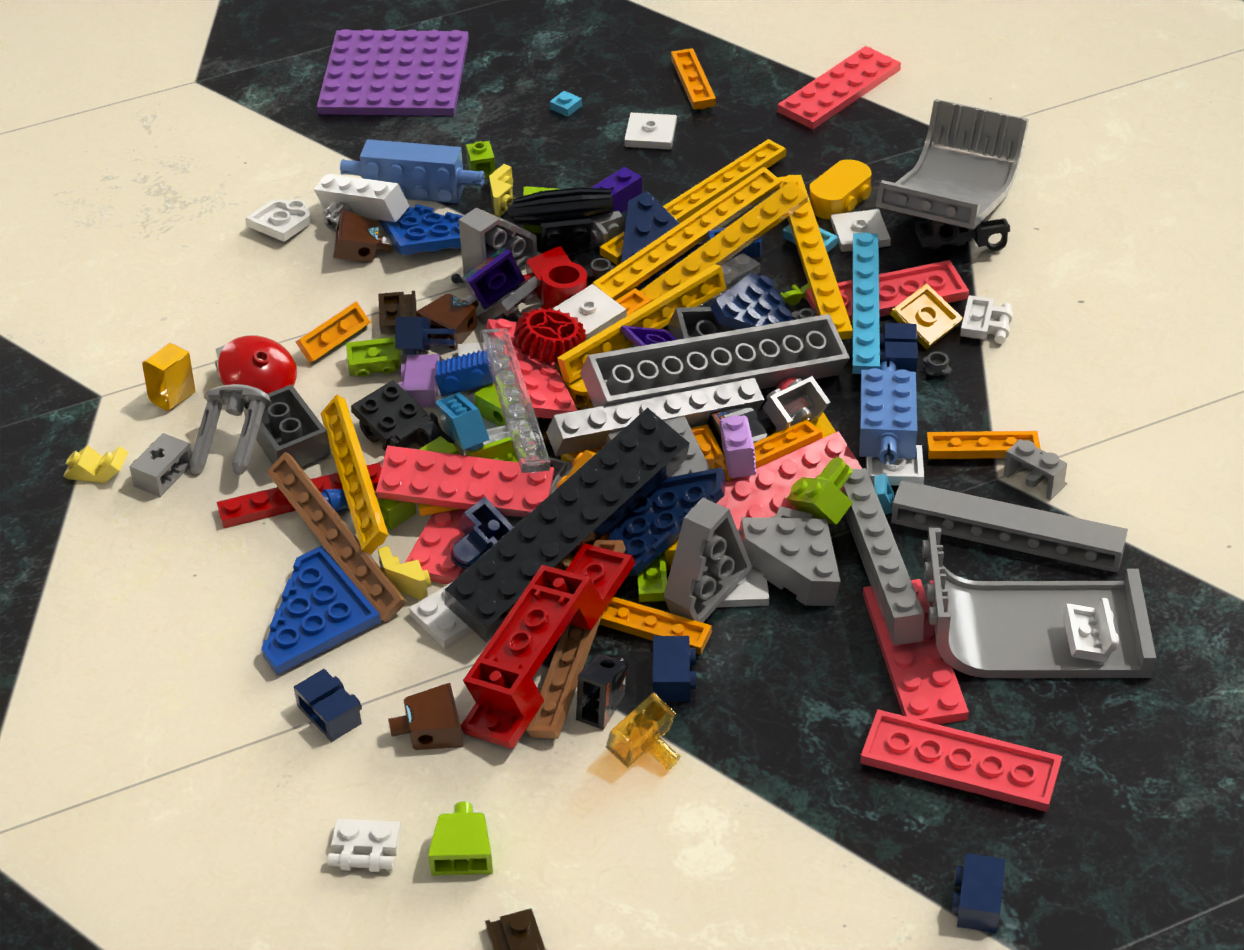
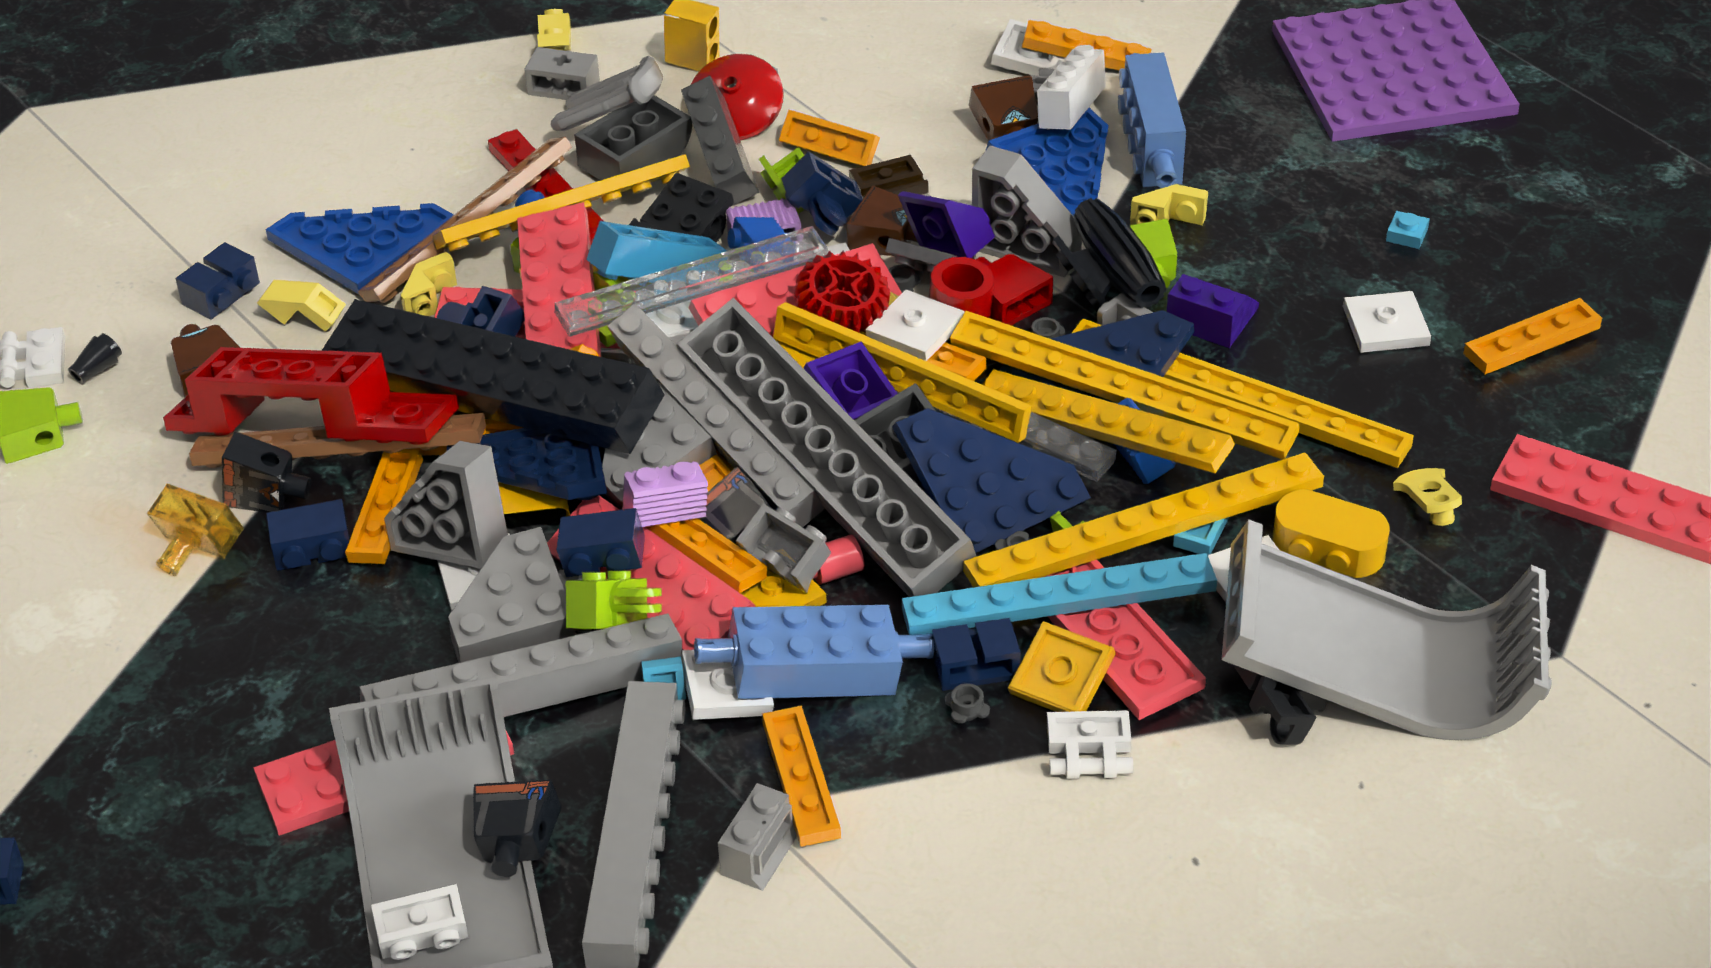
camera: 75 degrees right, 0 degrees up
(296, 192) = (1060, 42): none -> light orange plate
(321, 377) = (719, 139): none -> dark grey brick
(382, 652) = (309, 298): none -> light yellow slope
(391, 795) = (96, 357): none -> black cone
(481, 157) = (1225, 177): lime brick -> none
(770, 487) = (600, 541): none -> dark blue piece
(801, 151) = (1438, 503): none -> light yellow piece
(961, 760) = (191, 832): coral plate -> none
(1009, 576) = (514, 822): none -> black torso

